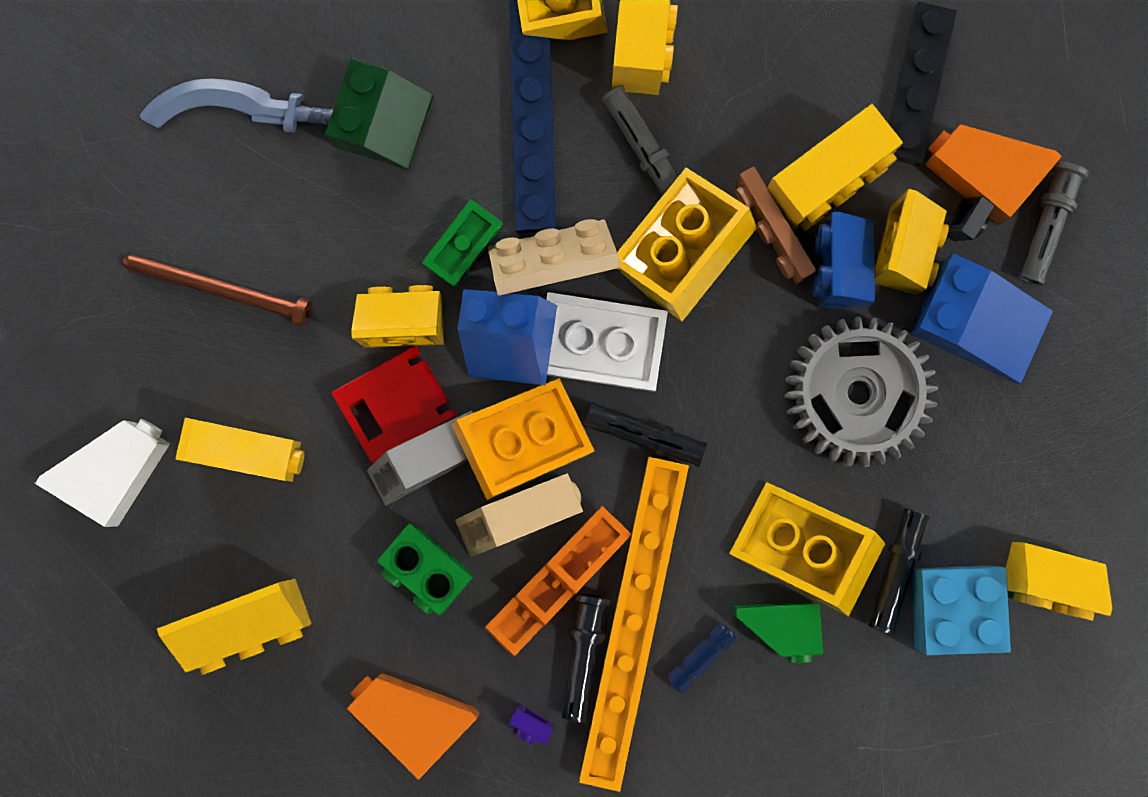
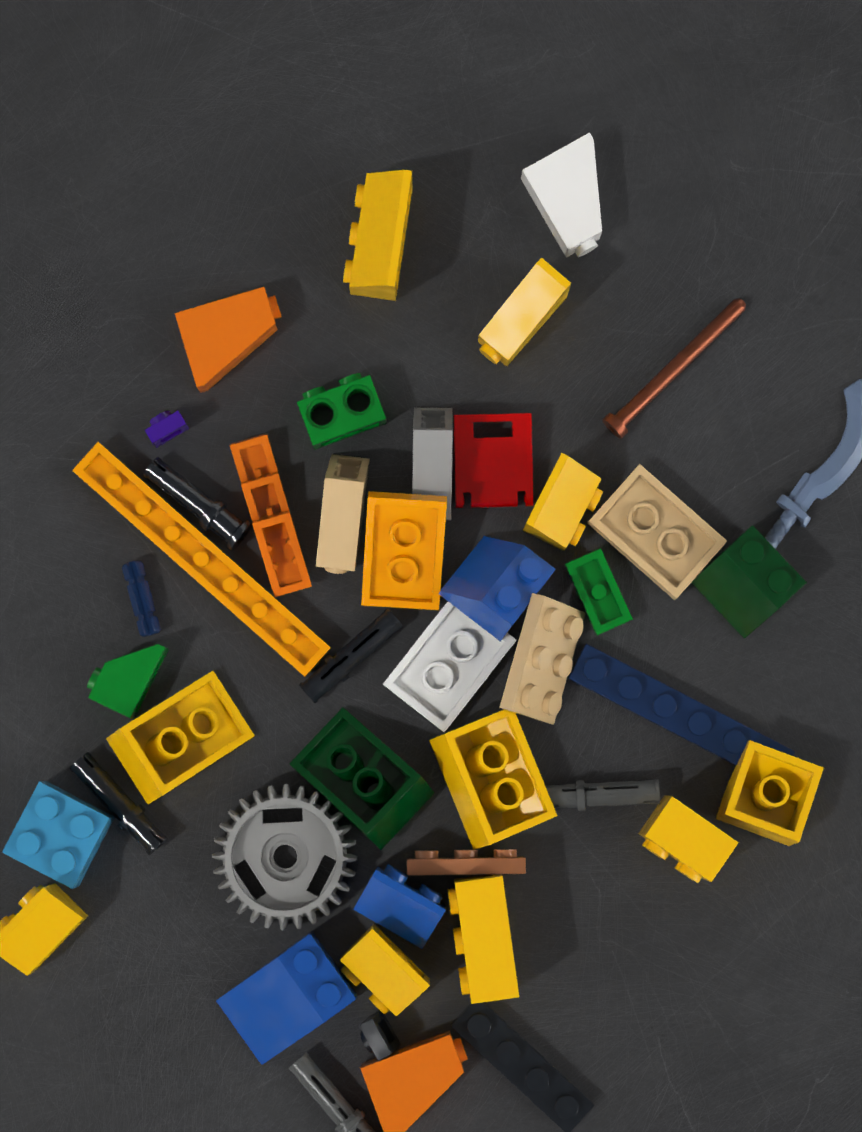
camera: 115 degrees right, 0 degrees up
(379, 221) = (657, 532): none -> tan plate
(750, 363) = (362, 778): none -> dark green slope

